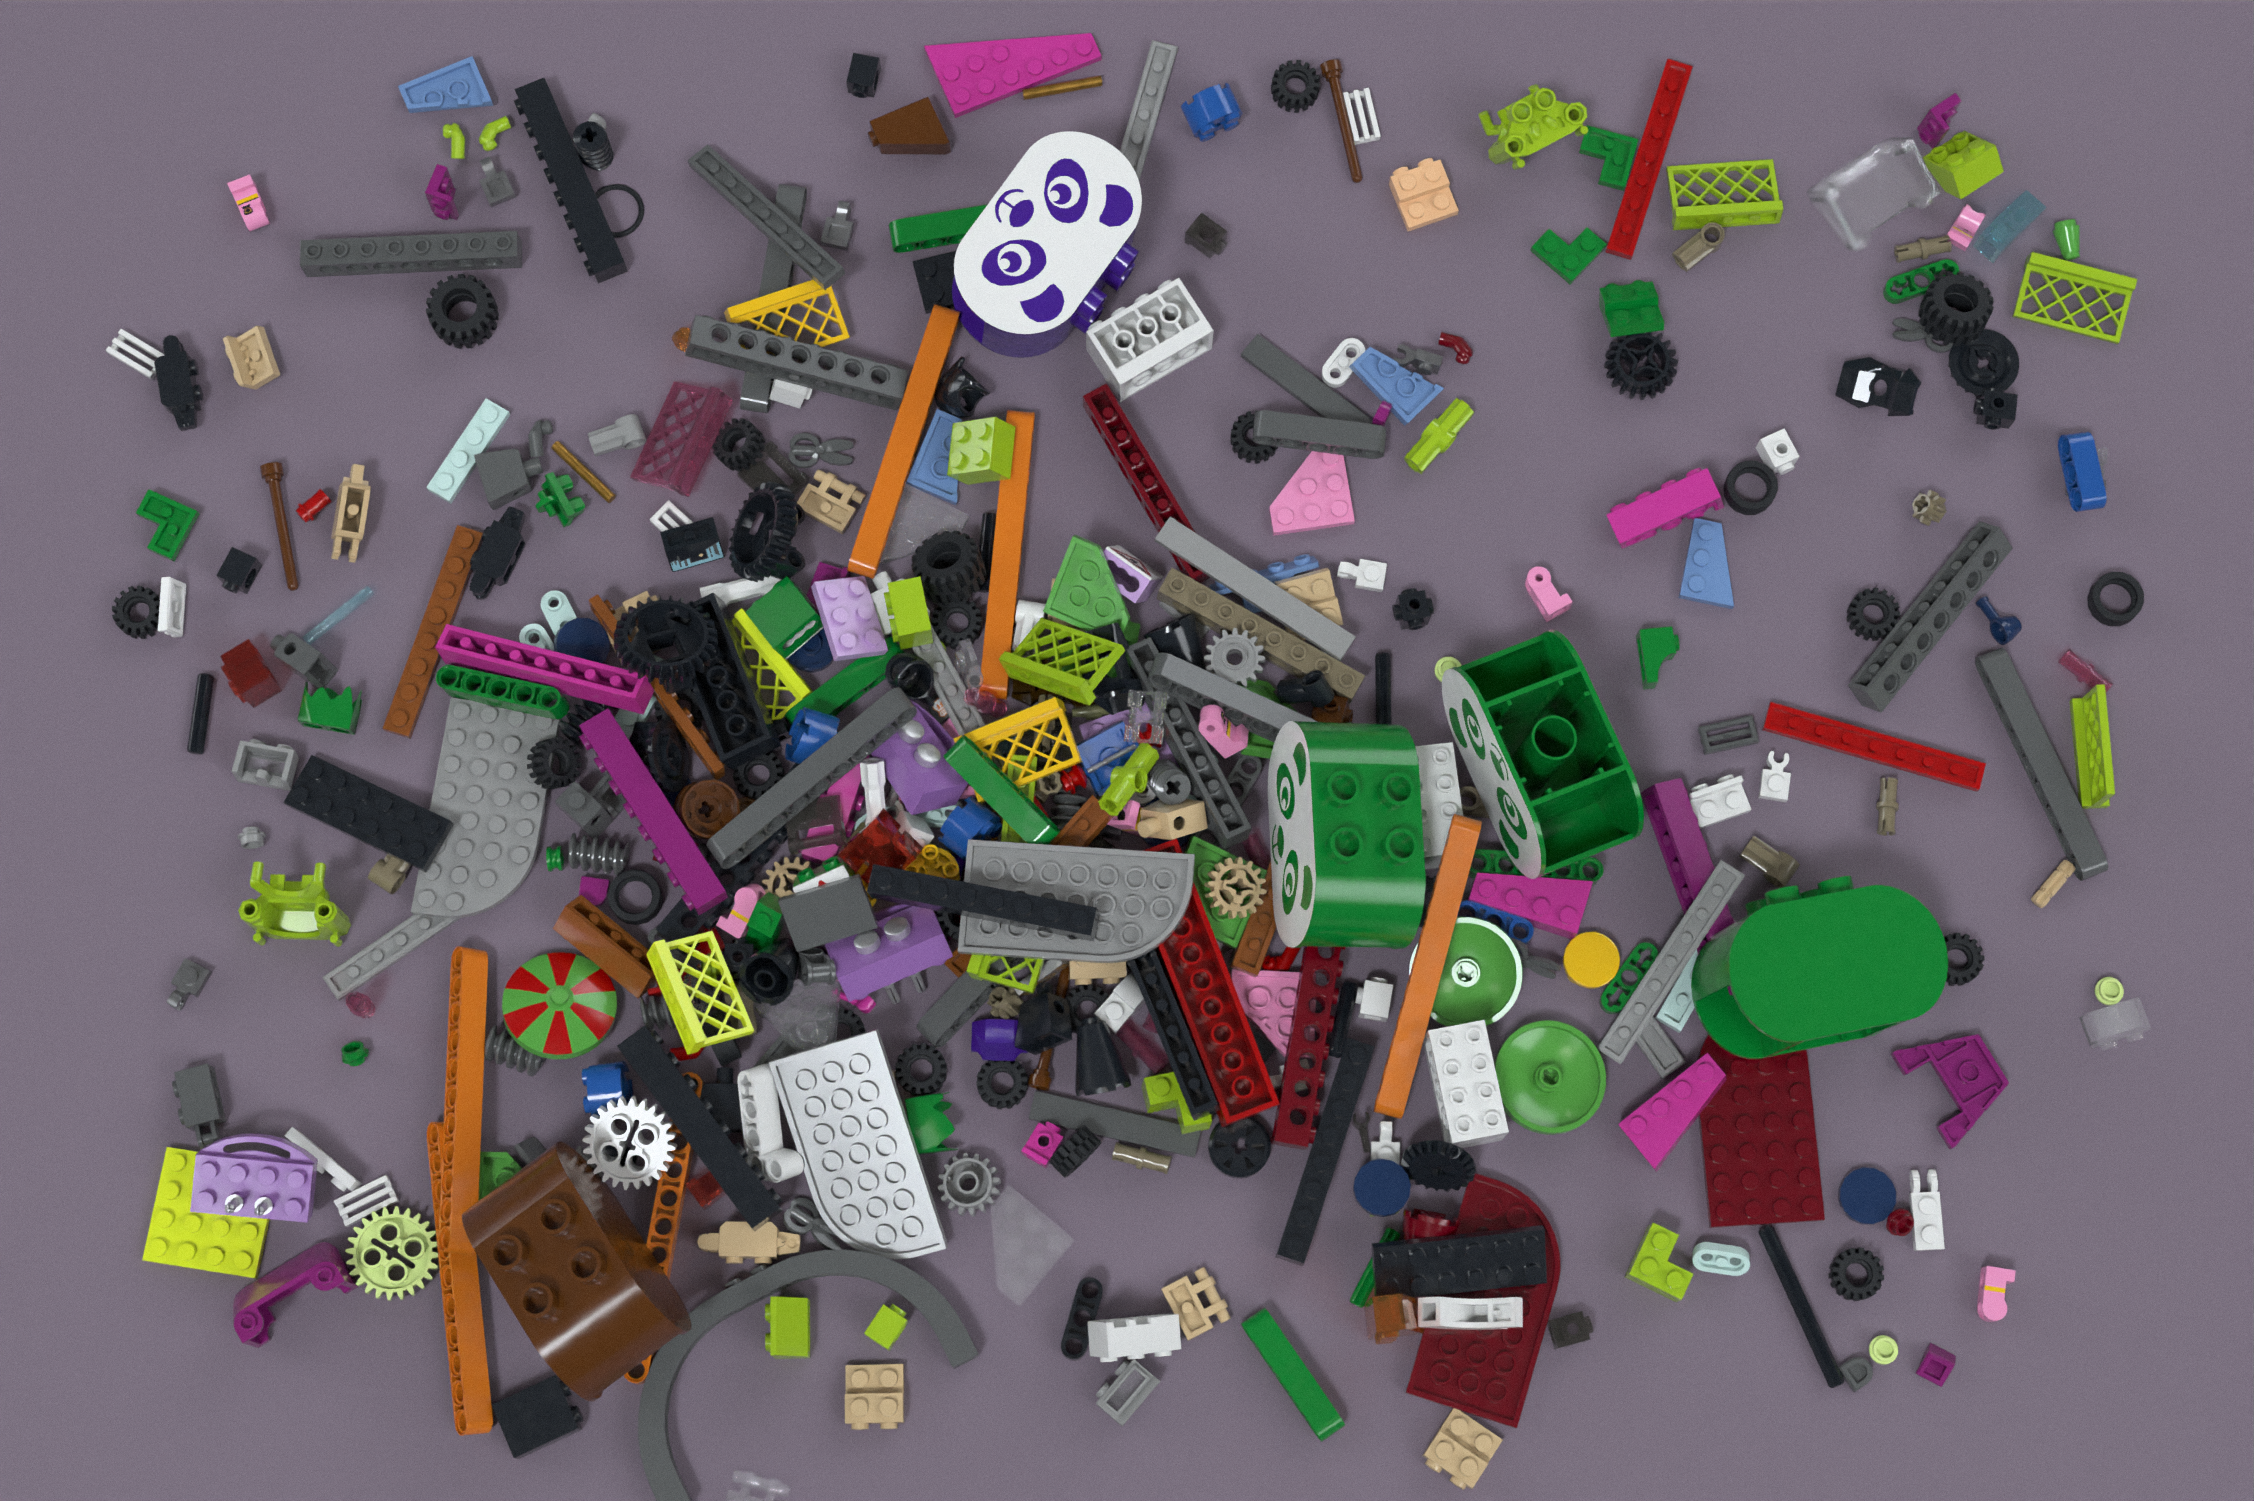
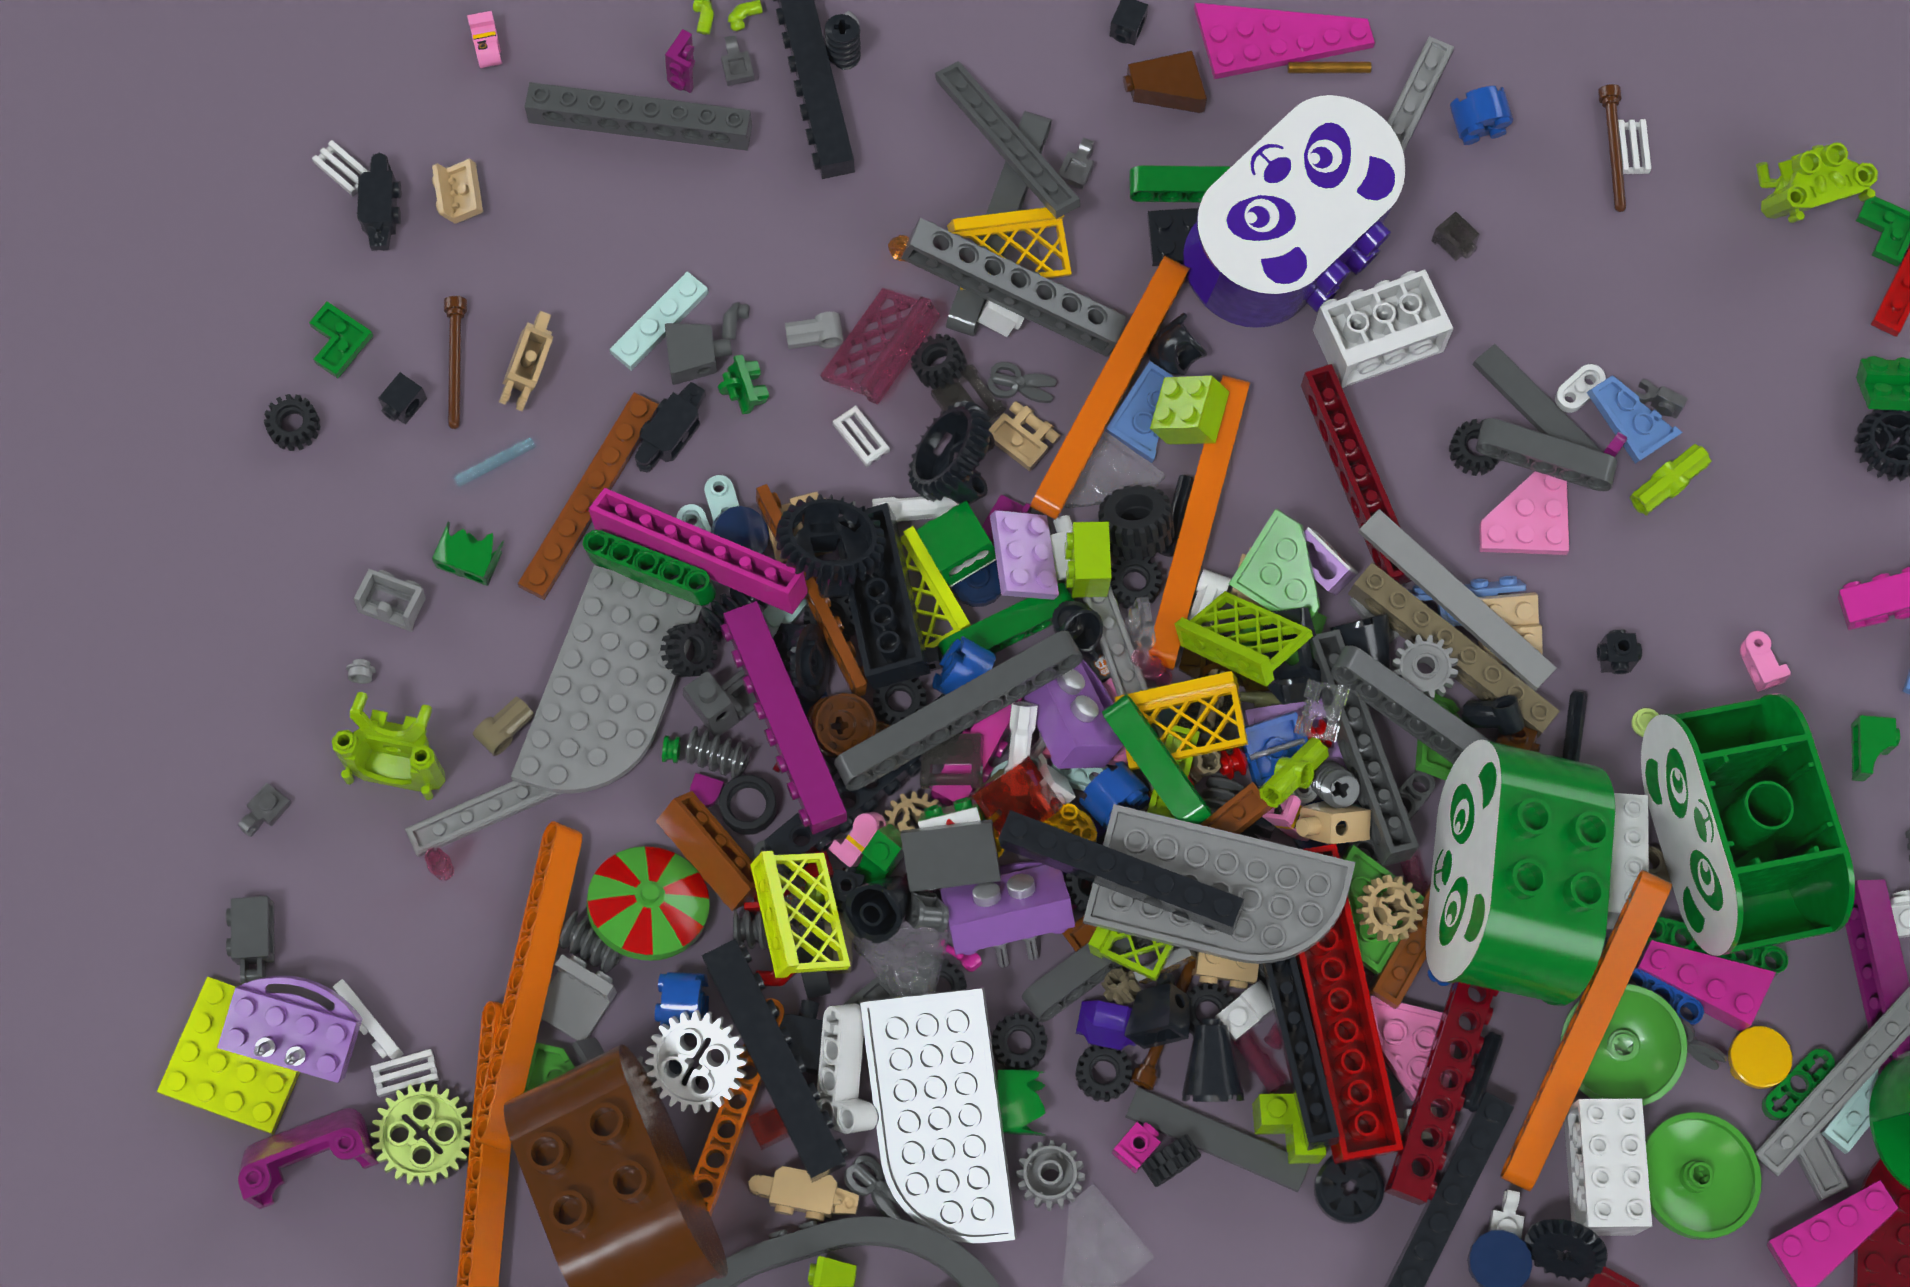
camera: 10 degrees right, 5 degrees down
(171, 607) = (326, 422): white tile -> none
(200, 713) = (333, 536): black axle -> none
(249, 674) = (391, 504): clear red brick -> none
(303, 660) = (445, 494): dark grey torso -> none
(313, 506) = (490, 347): red pin -> none
(354, 1053) = (422, 914): green plate -> none
(368, 813) = (487, 667): black plate -> none
(452, 293) = (679, 160): black tyre -> none
(511, 1104) = (577, 998): none -> light grey bracket
(583, 471) = (773, 362): pearl gold bar -> none
(640, 206) = (878, 106): black tyre -> none
(692, 544) = (872, 454): black panel -> none
(1141, 1158) = (1241, 1181): dark tan pin -> none
(1221, 732) = (1399, 741): bright pink leg -> none
(1281, 962) = (1425, 998): red arm -> none
(1300, 72) = (1571, 91): black tyre -> none
(1362, 1127) = (1485, 1196): clear smoke hand -> none
(1368, 574) = (1574, 608): white plate -> none
(1374, 999) = (1519, 1056): white brick -> none
(1423, 194) = (1687, 234): light nougat plate -> none
(1460, 346) = (1703, 390): dark red arm -> none
(1566, 259) = (1828, 325): green plate -> none

